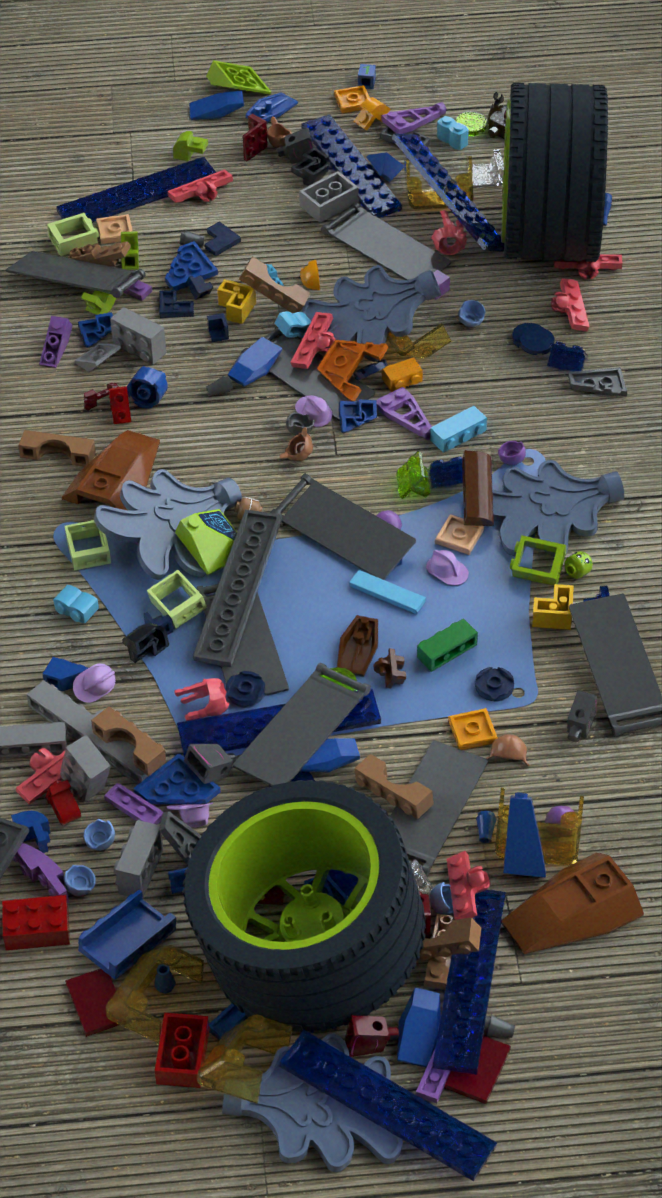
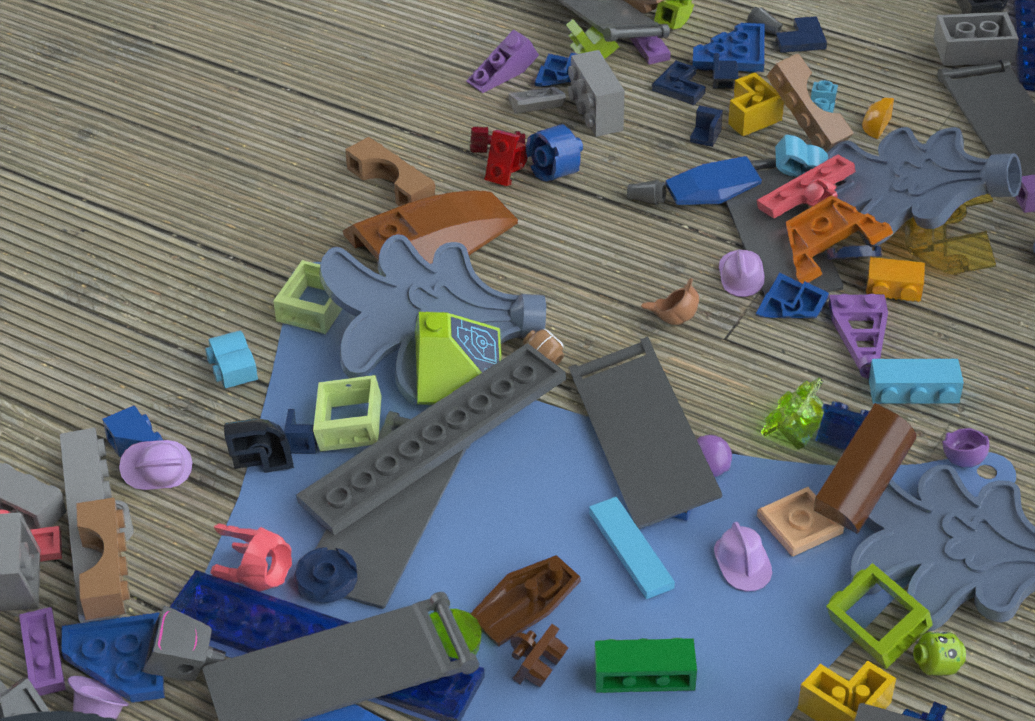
camera: 35 degrees right, 5 degrees down
(297, 421) = (705, 276): dark grey hair -> none

